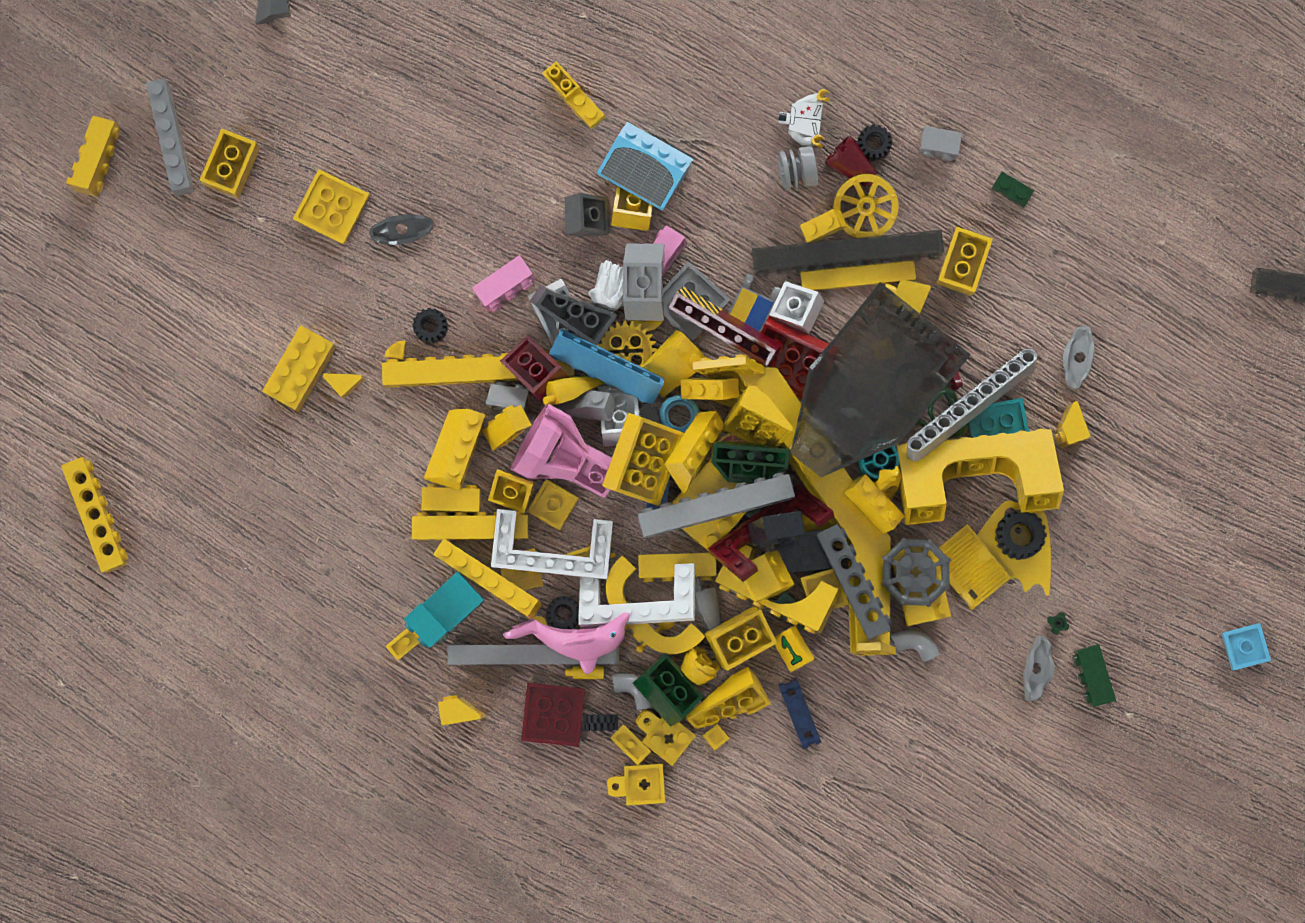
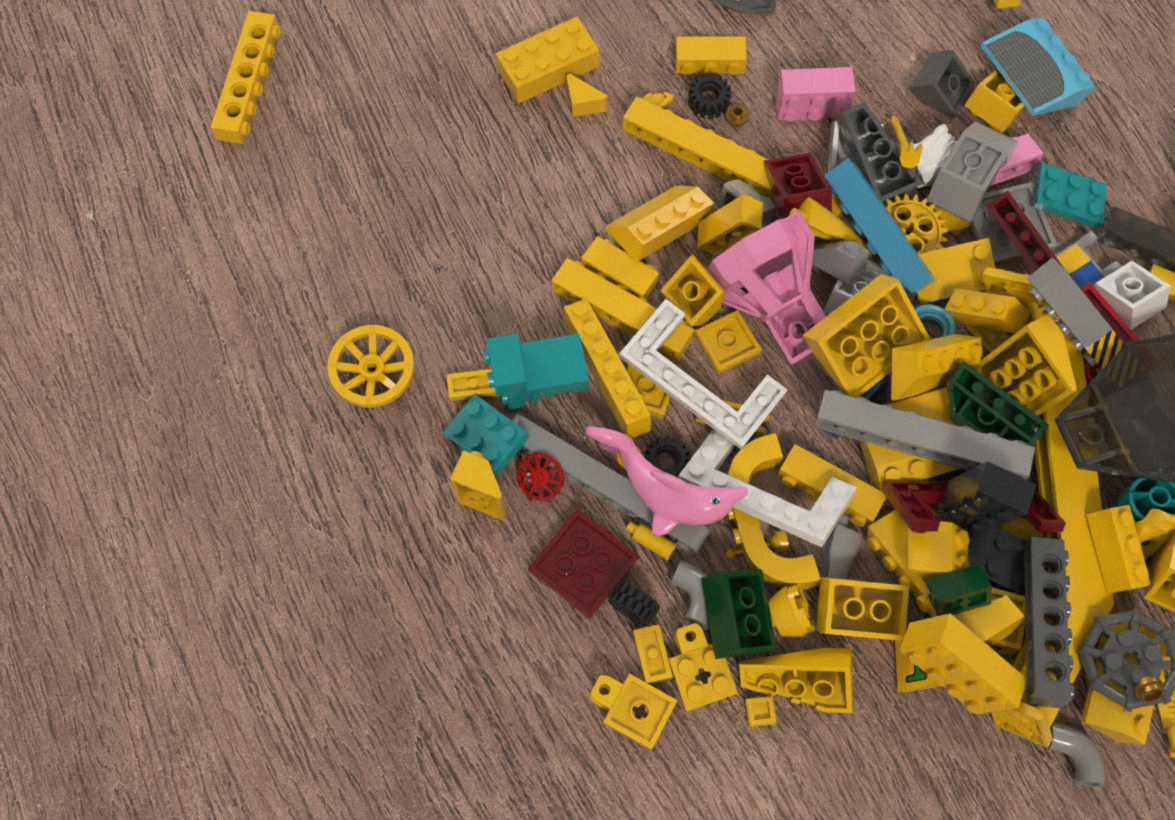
camera: 30 degrees right, 15 degrees down
(317, 648) = (369, 362): none -> yellow wheel
(411, 293) = (710, 55): none -> yellow brick
(438, 671) = (486, 431): none -> teal plate
(460, 334) = (737, 120): none -> pearl gold plate
(490, 676) = (540, 476): none -> red wheel
(596, 306) = (908, 155): none -> yellow piece
(719, 254) = (1069, 195): none -> teal plate
(767, 370) = (1075, 313): none -> light grey brick
(791, 597) = (959, 591): none -> dark green hinge
(799, 713) = (881, 748): dark blue plate -> none
(818, 643) = (963, 664): none -> yellow brick
(933, 589) = (1149, 689): none -> pearl gold plate

